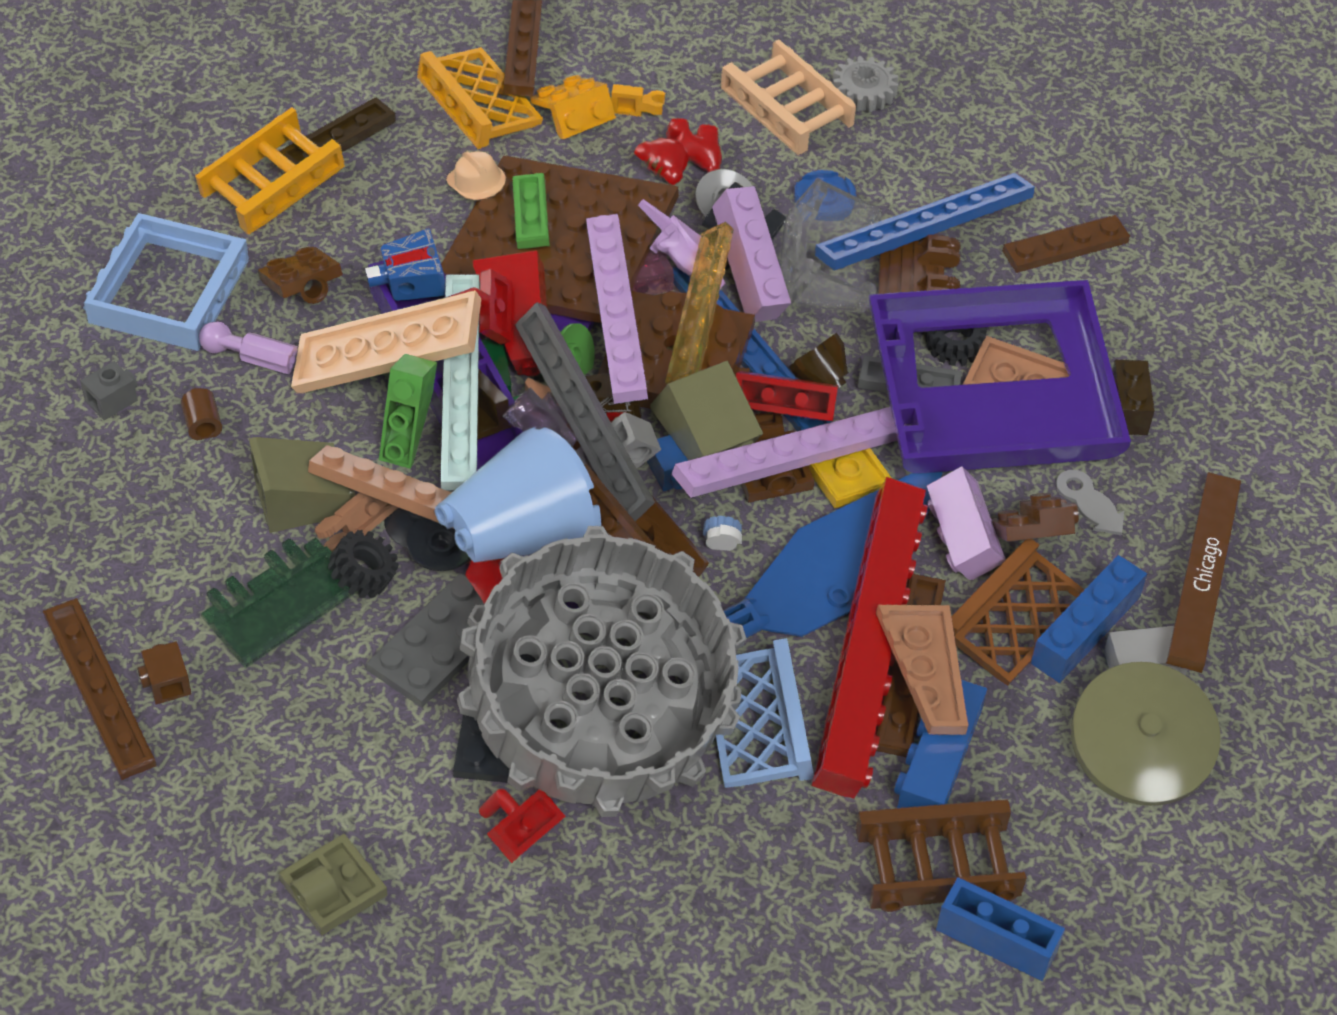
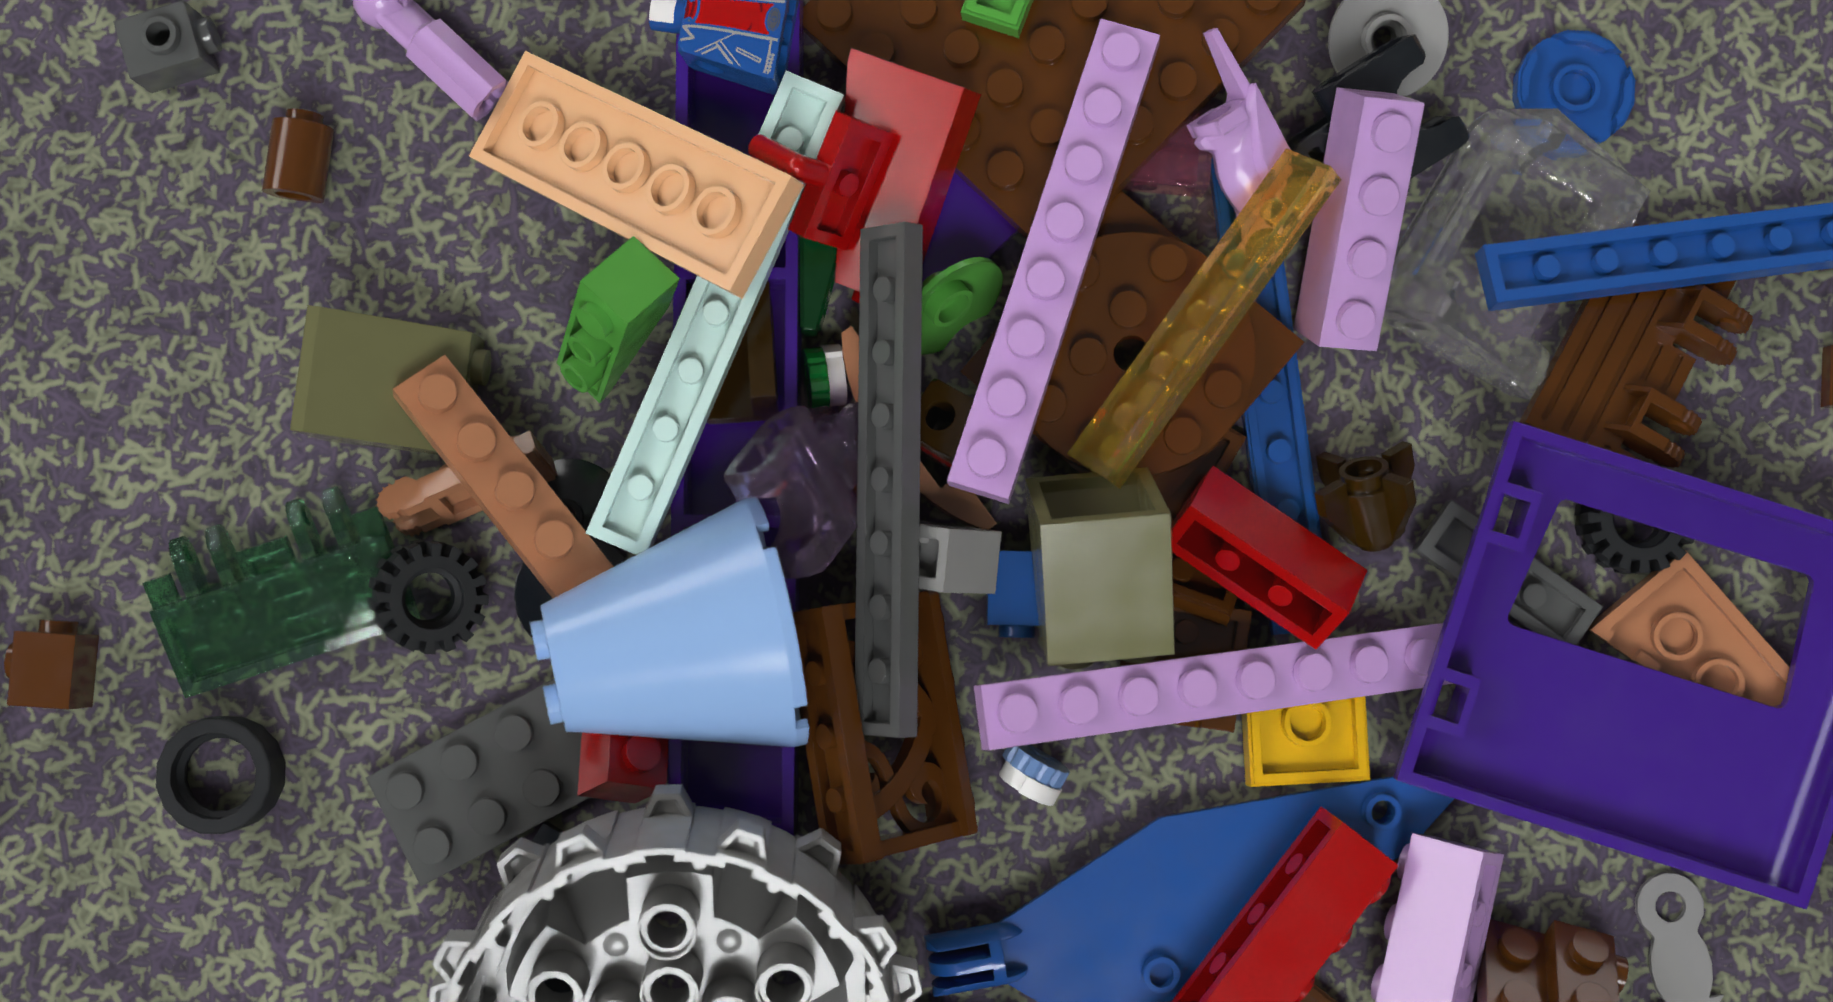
camera: 30 degrees right, 35 degrees up
(283, 712) = (173, 773): none -> black tyre

